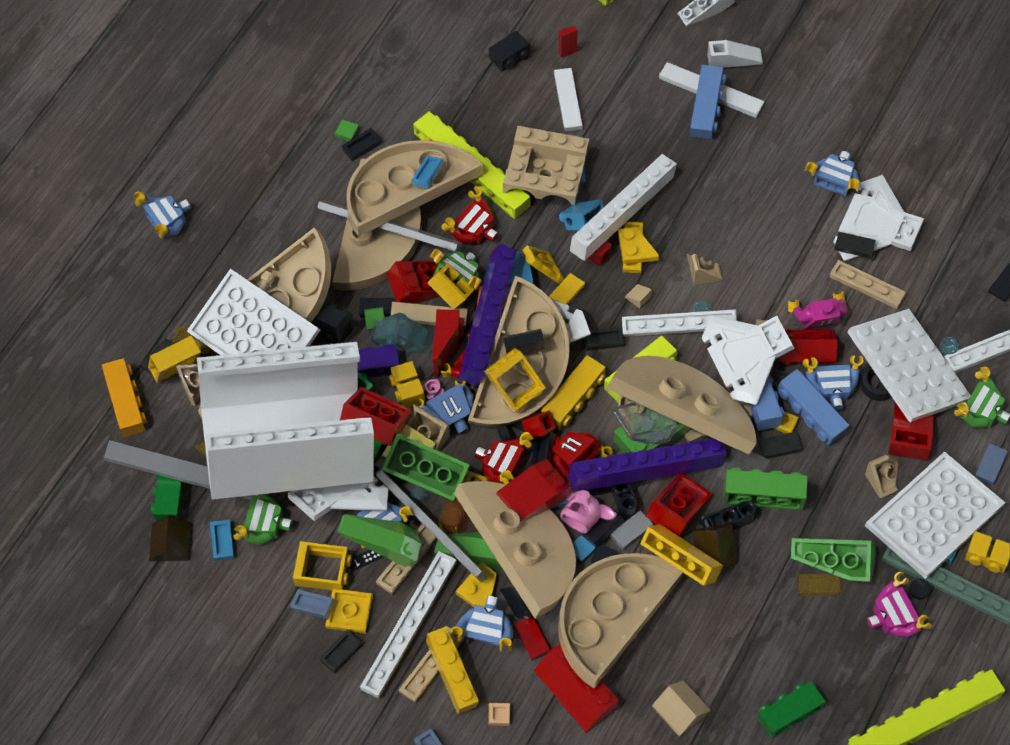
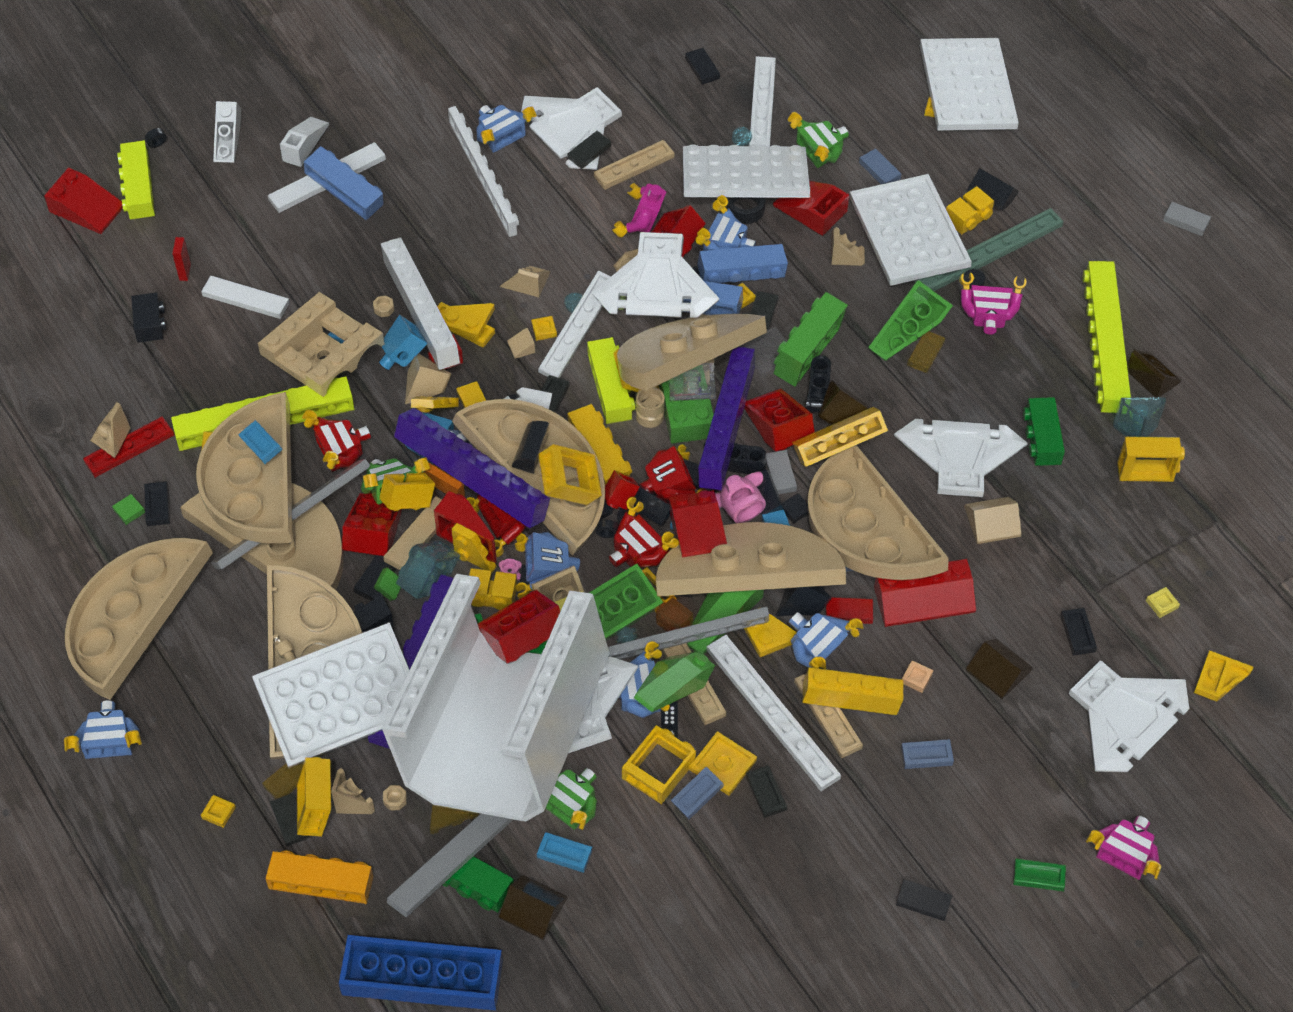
camera: 65 degrees left, 5 degrees down
(80, 495) = (421, 972): none -> blue brick
(145, 312) = (218, 811): none -> yellow tile
(261, 172) = (127, 607): none -> tan plate
(396, 101) = (133, 445): none -> red tile
(399, 85) = (112, 431): none -> tan slope
(427, 344) = (470, 547): none -> yellow wing
(560, 250) = (425, 379): none -> tan slope
(614, 187) = (383, 306): none -> tan tile
(665, 302) = (544, 328): none -> yellow tile
(732, 654) = (960, 452): none -> white plate
(782, 187) = (486, 176): none -> white plate

